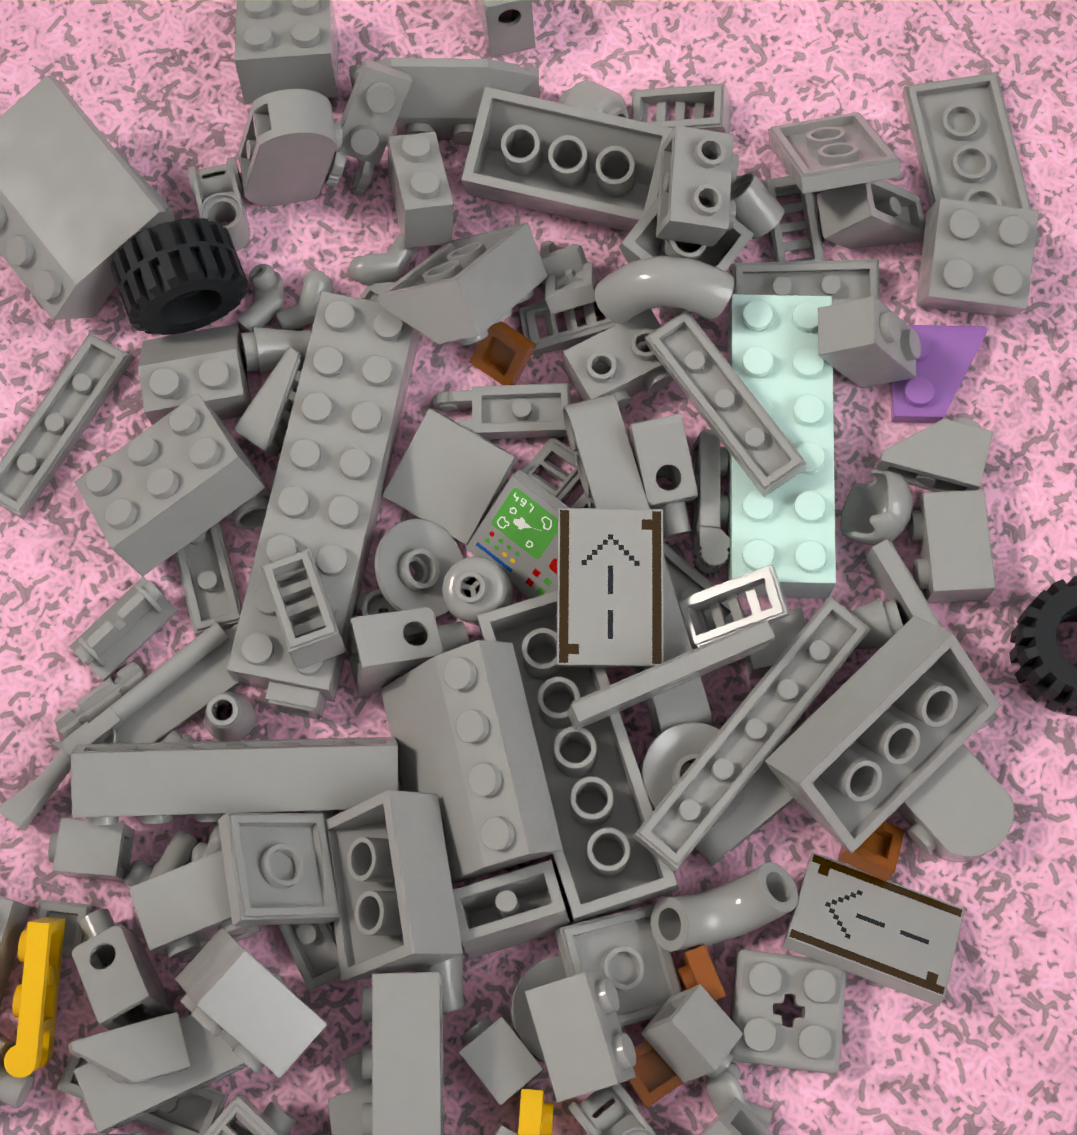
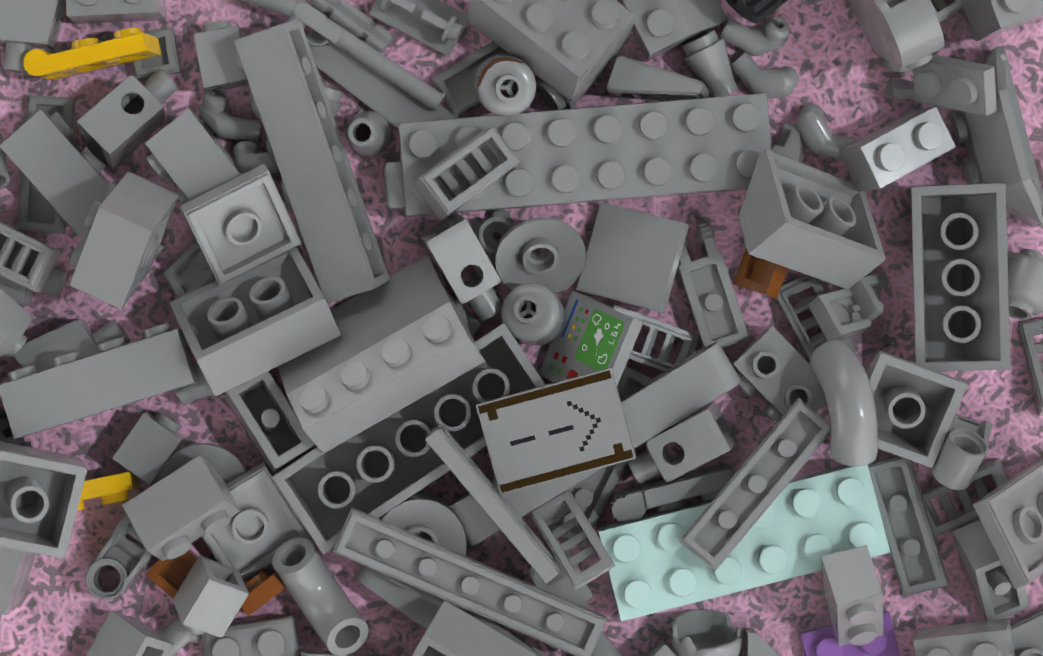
camera: 70 degrees right, 15 degrees up
(137, 1050) = (67, 157): light grey slope -> none
(224, 549) = (489, 82): none -> light grey head
(696, 186) = (951, 406): light grey brick -> none

